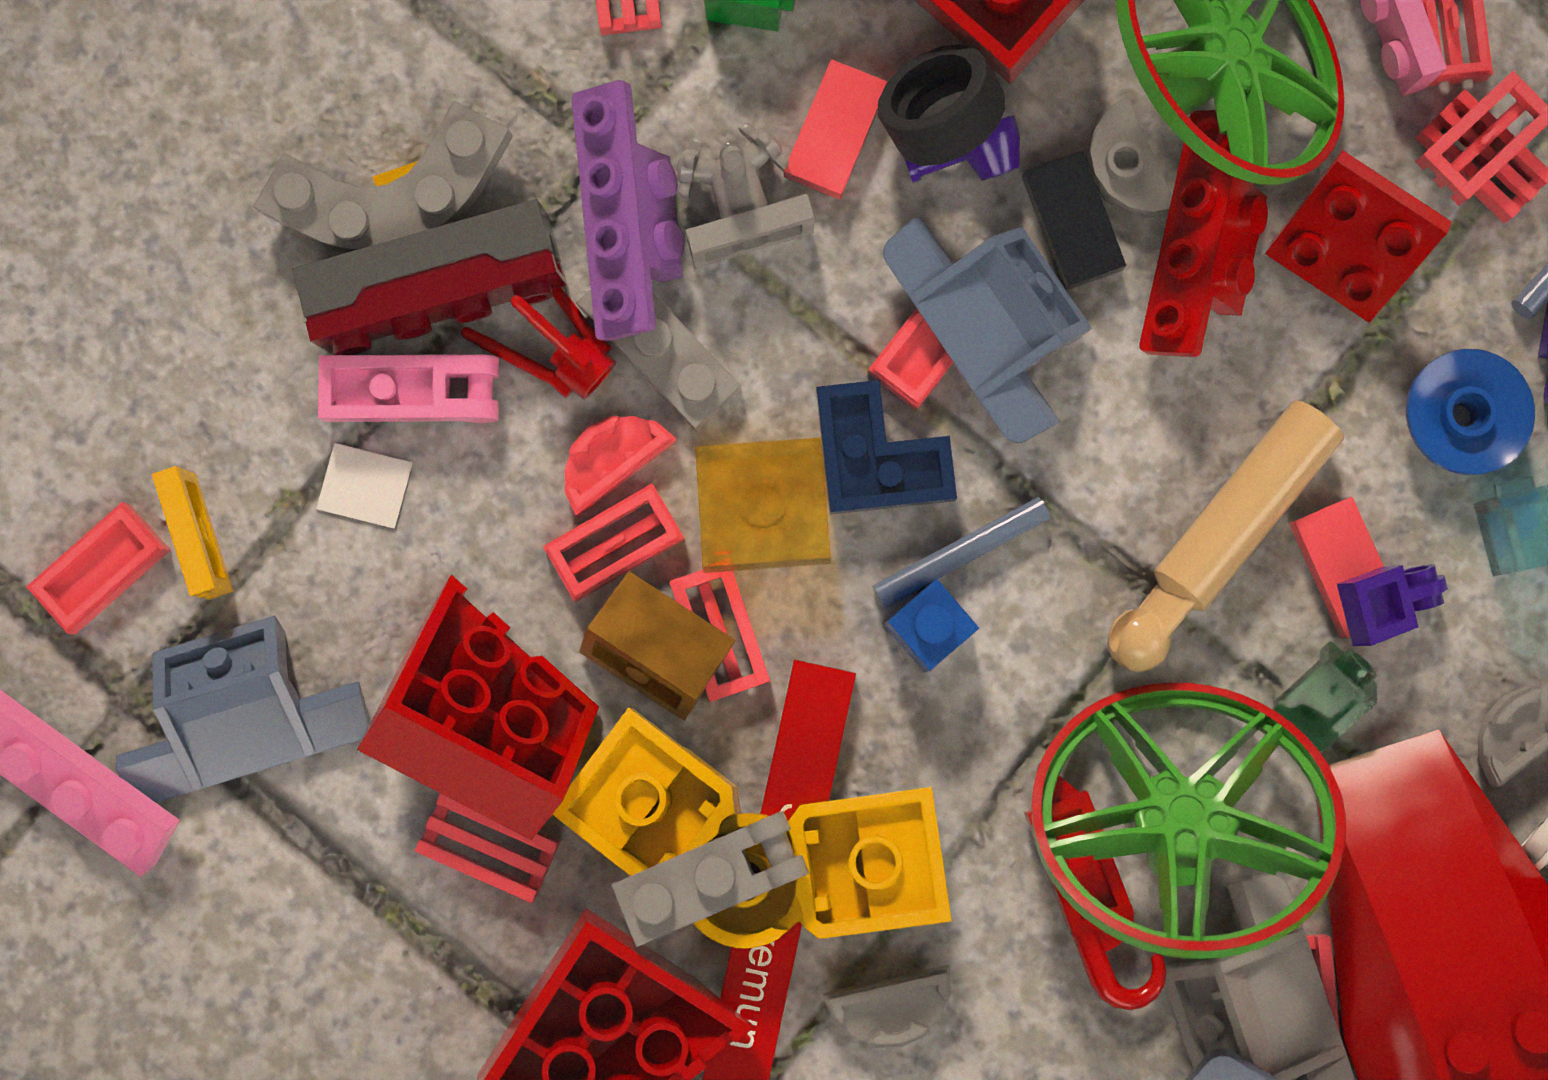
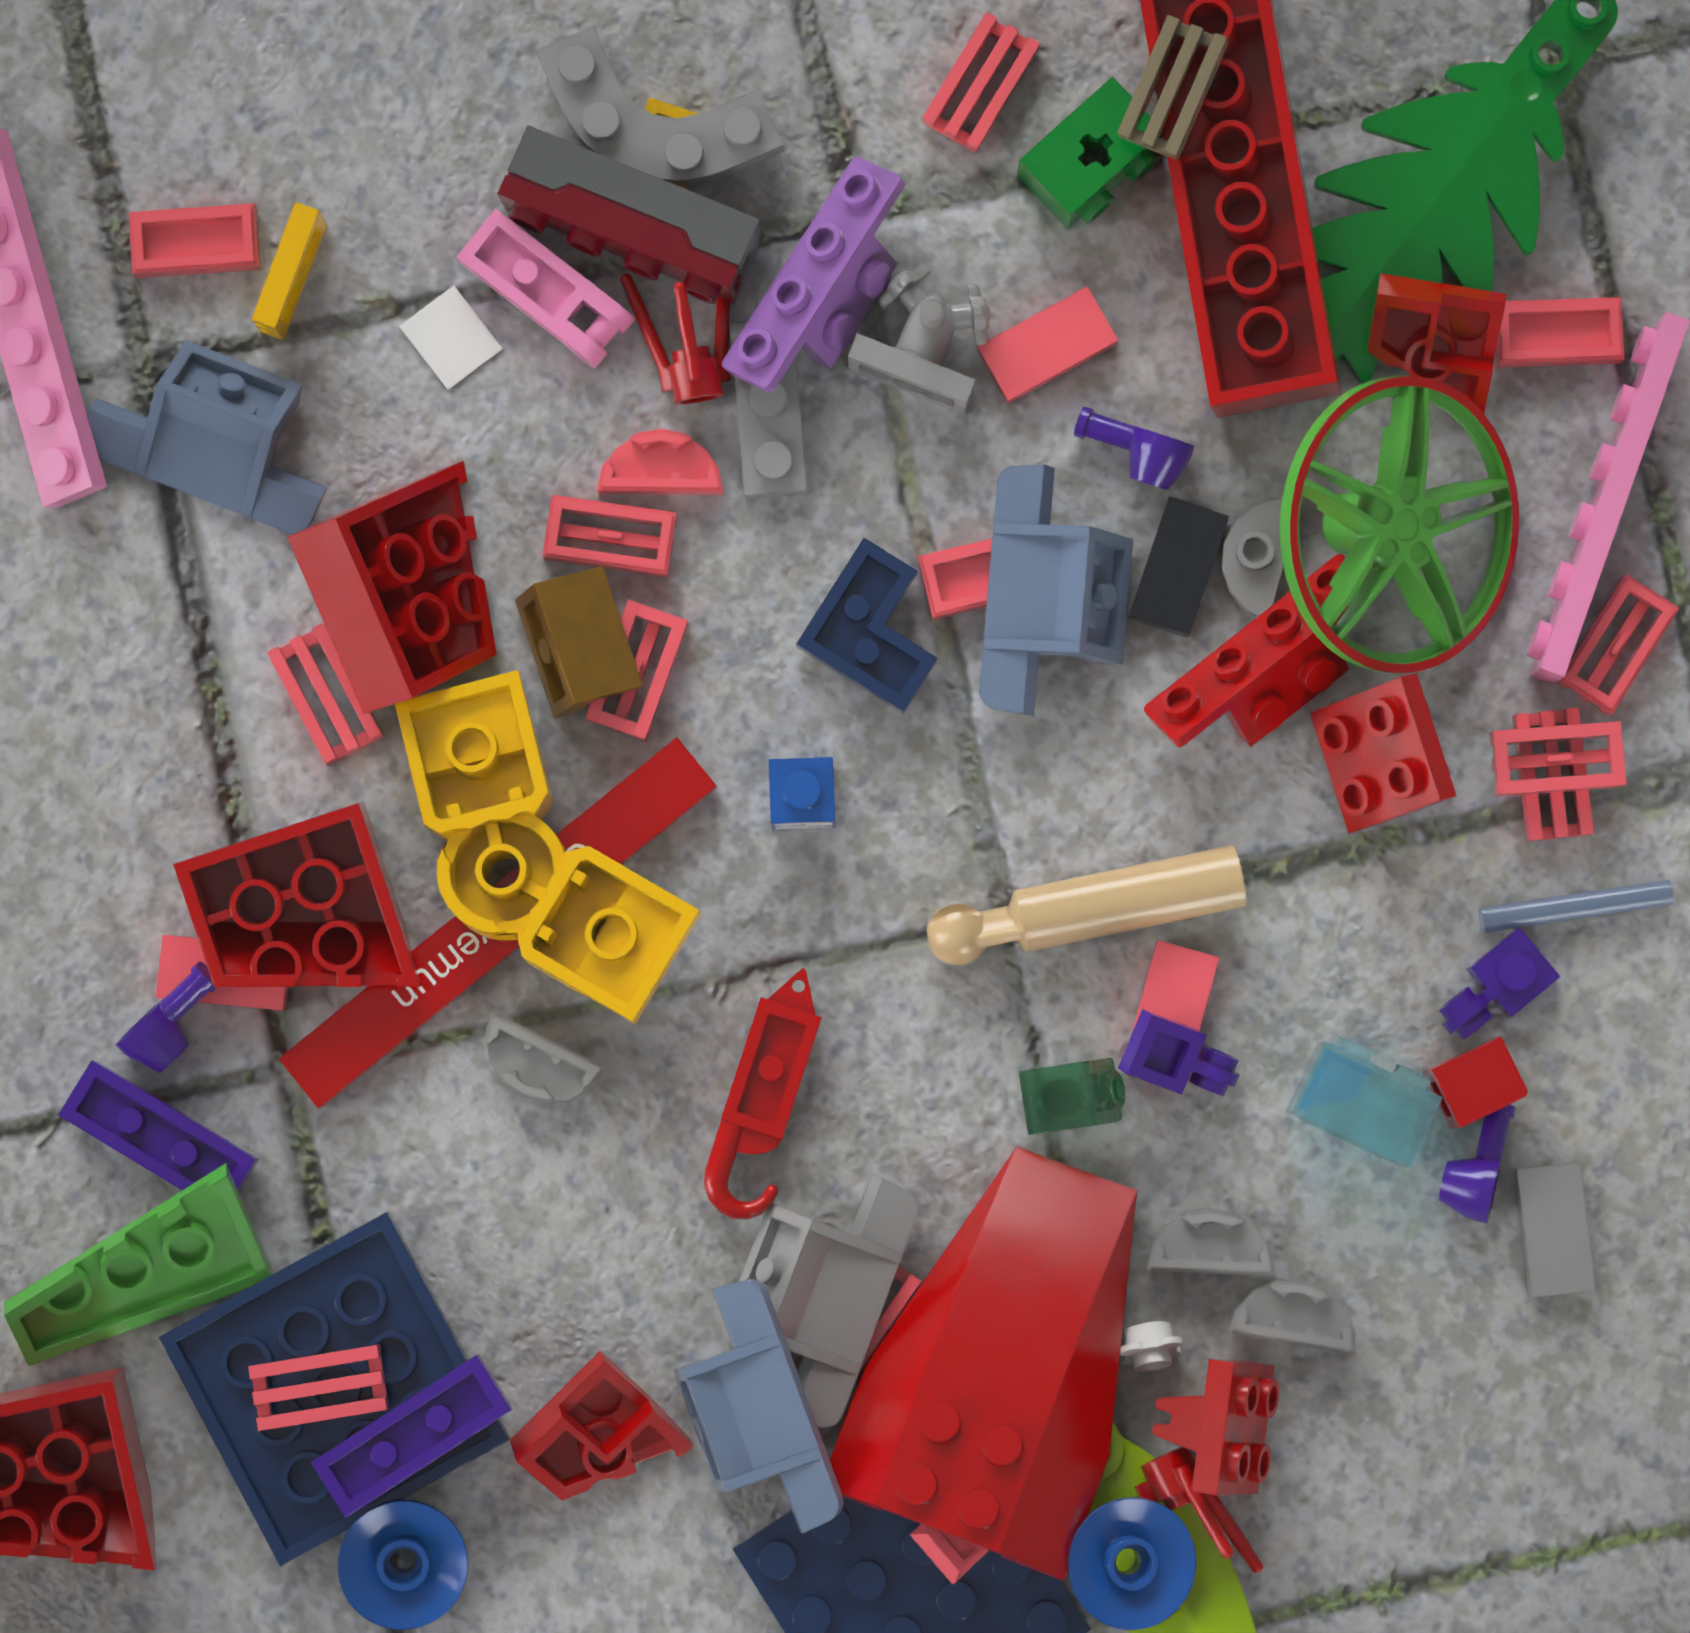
camera: 40 degrees right, 0 degrees up
(707, 880) = (473, 845): light grey plate -> none
(762, 505) = (748, 597): clear yellow tile -> none
(957, 127) = (1145, 419): black tyre -> none
(961, 552) = (877, 758): sand blue bar -> none
(1188, 819) = (874, 1091): bright green wheel -> none
(1498, 408) = (1398, 955): blue dish -> none

